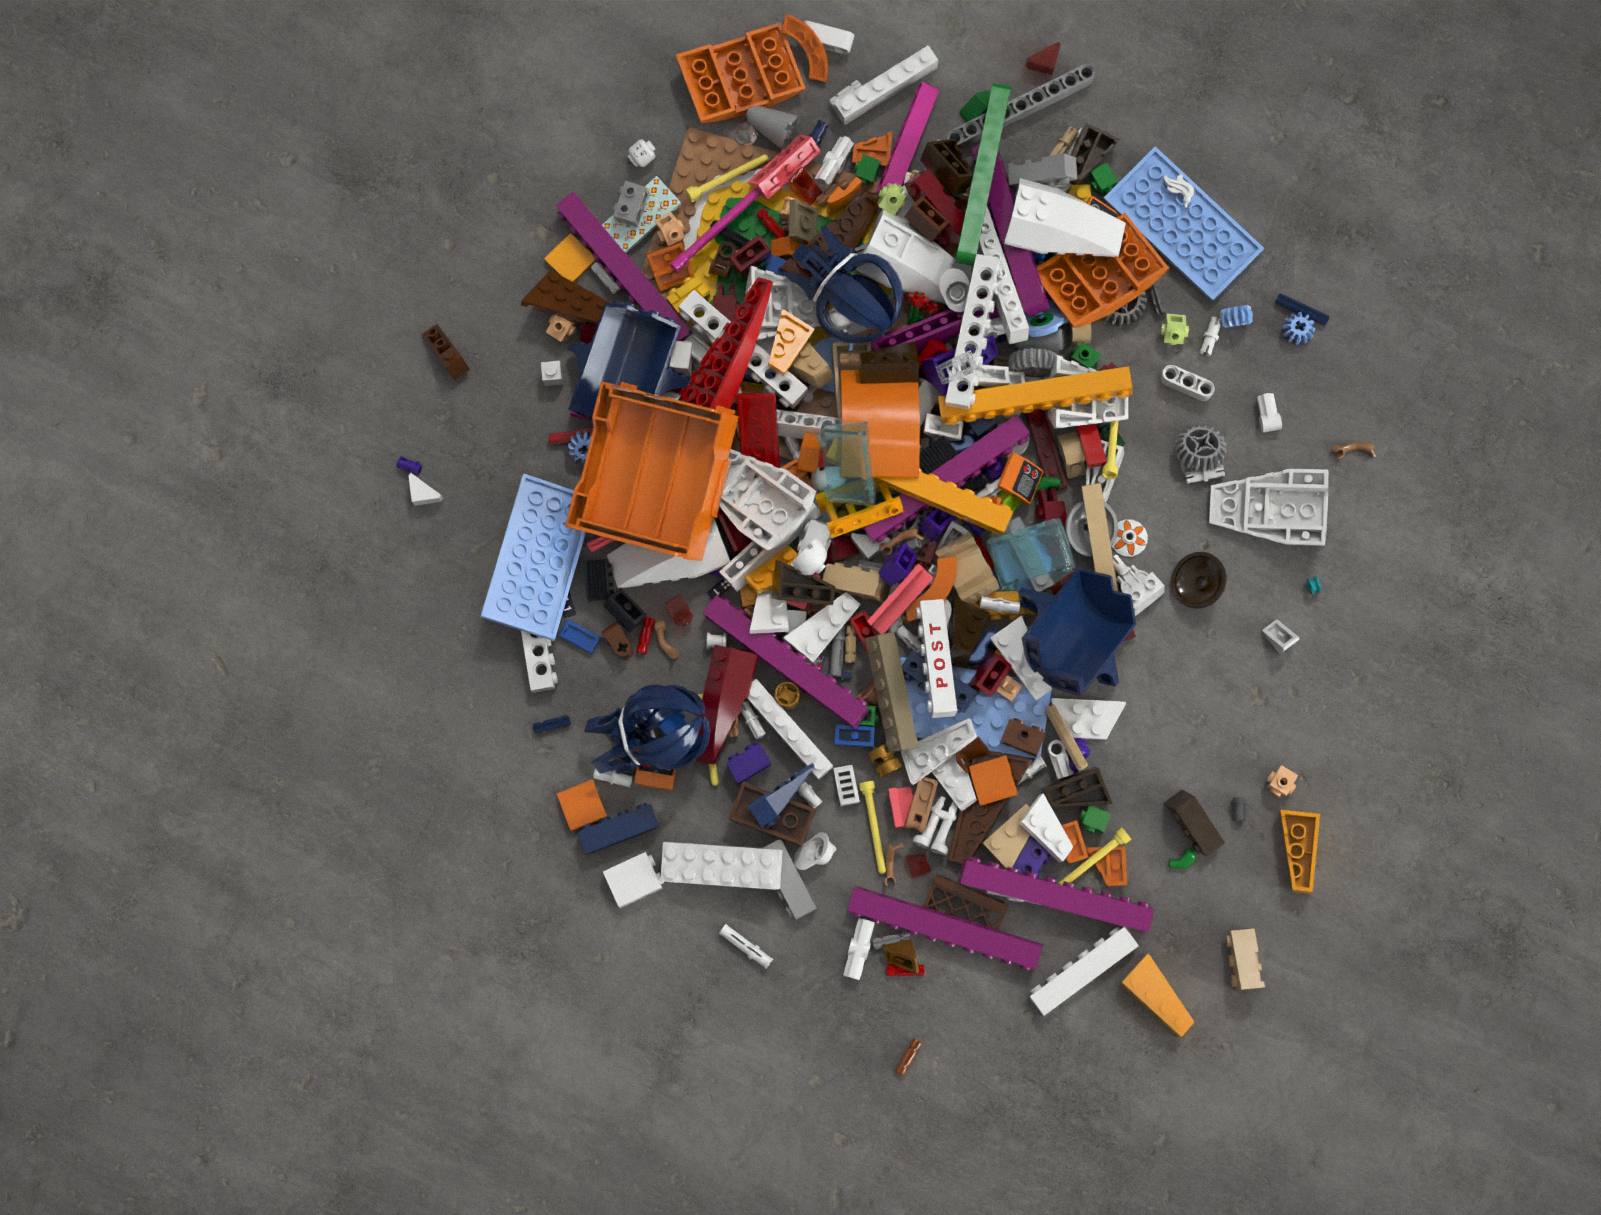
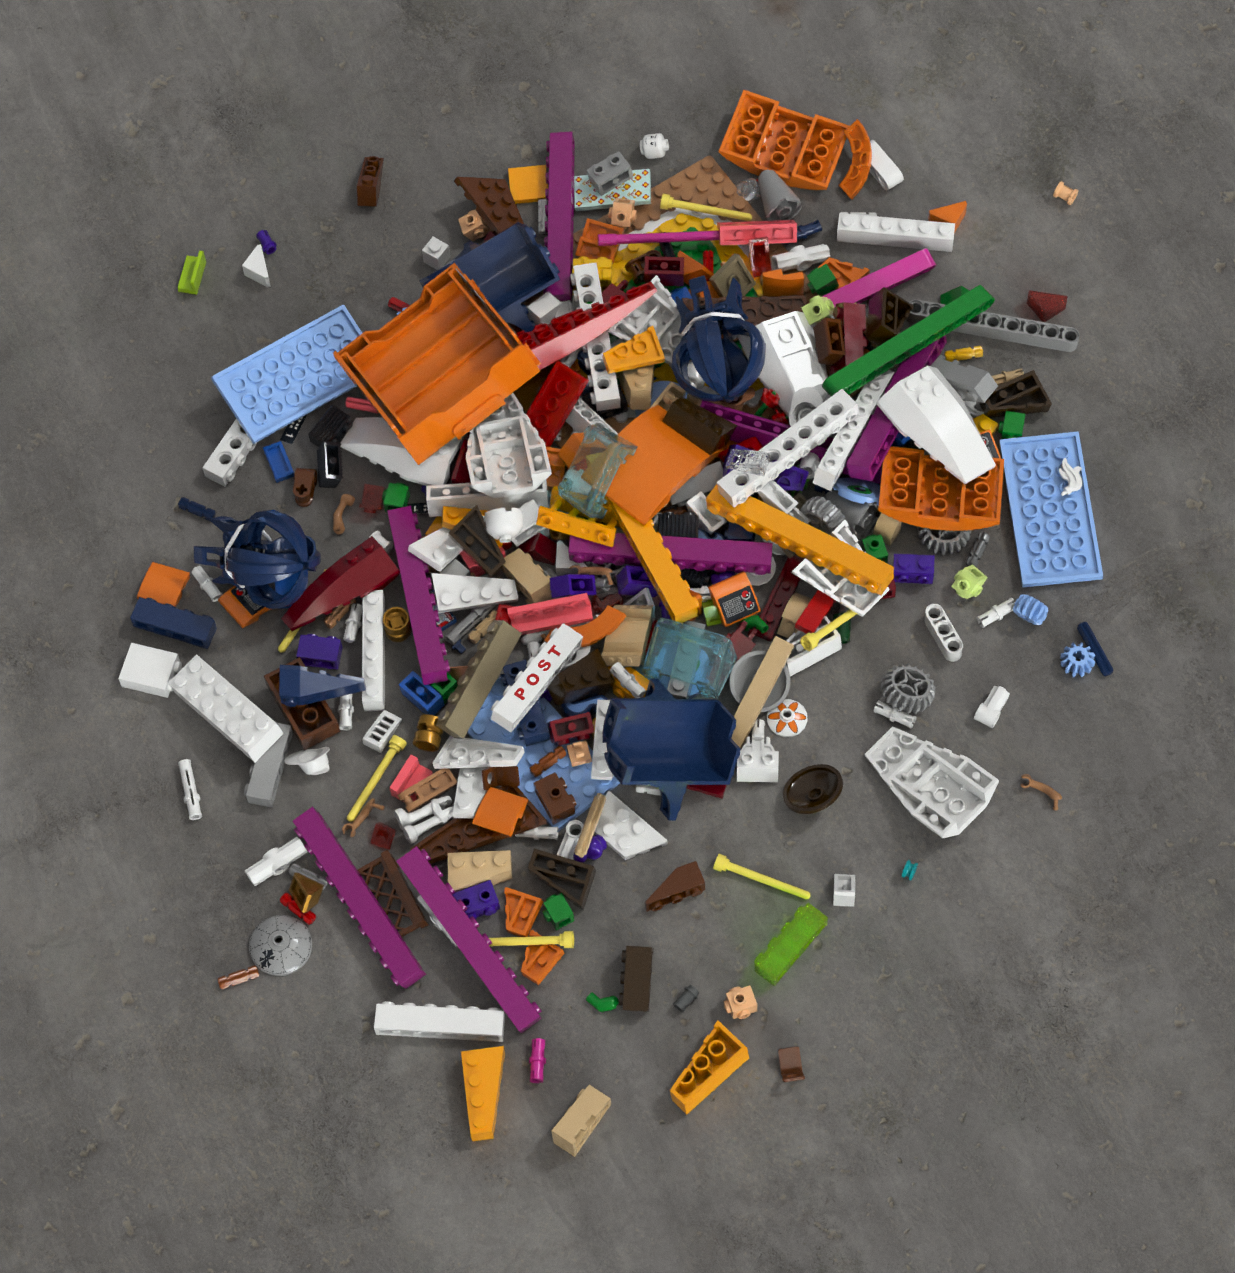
camera: 40 degrees right, 15 degrees down
(374, 537) = (192, 273): none -> lime panel
(645, 635) = (329, 498): red axle -> none
(696, 595) = (395, 496): none -> green brick
(768, 234) = (693, 269): none -> orange slope
(901, 1010) = (281, 957): none -> light grey dish
(914, 42) = (949, 214): none -> orange slope
(991, 713) = (547, 761): none -> dark orange axle
(1016, 147) = (964, 353): none -> yellow axle
(1046, 829) = (508, 882): white wing -> none
(1127, 348) = (913, 568): none -> dark purple brick
(1163, 727) = (681, 883): none -> reddish brown slope
(1175, 941) = (537, 1060): none -> dark pink pin
(1179, 687) = (724, 864): none -> light yellow piece
(1279, 709) = (790, 944): none -> clear neon green brick
(1354, 799) = (790, 1064): none -> reddish brown bracket

